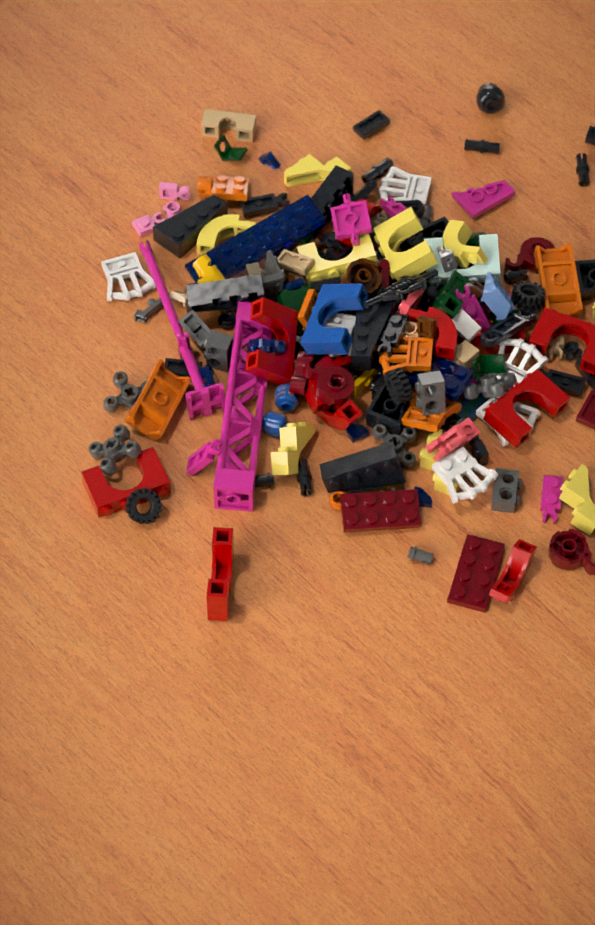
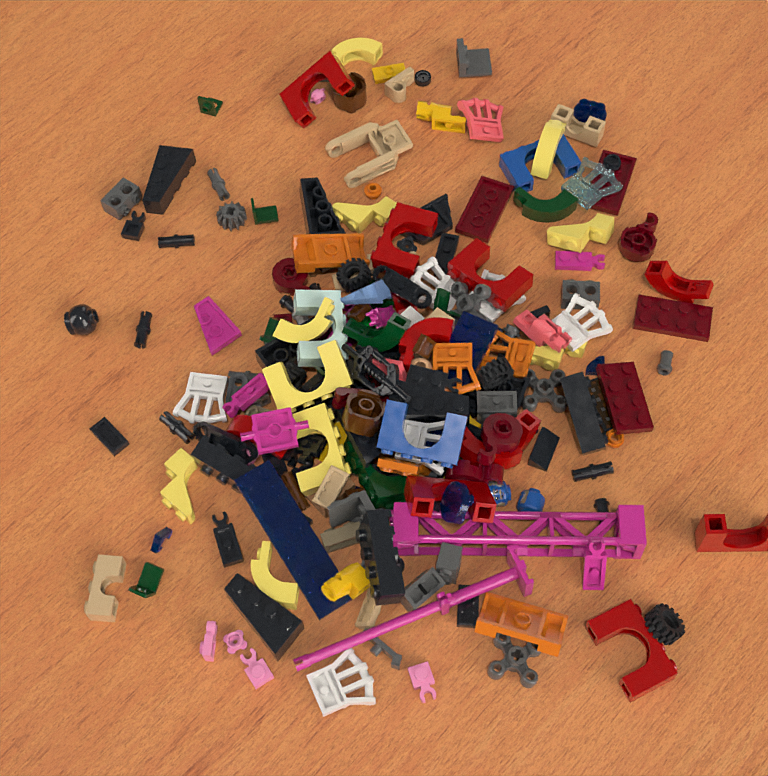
camera: 90 degrees left, 5 degrees up
(115, 449) = (598, 654): dark grey gear -> none
(124, 334) = (422, 679): none -> bright pink plate
(209, 374) = (483, 572): clear blue tile -> none
(224, 187) = (205, 583): orange plate -> none
(292, 441) = (565, 481): light yellow arch -> none
(296, 283) = (360, 483): clear blue tile -> none
(332, 441) = (543, 449): none -> black slope
(369, 392) = (495, 402): none -> dark grey bracket
(430, 393) = (500, 342): dark grey brick -> none
(447, 259) = (330, 333): flat silver piece -> none
(506, 252) = (287, 302): none -> black pin

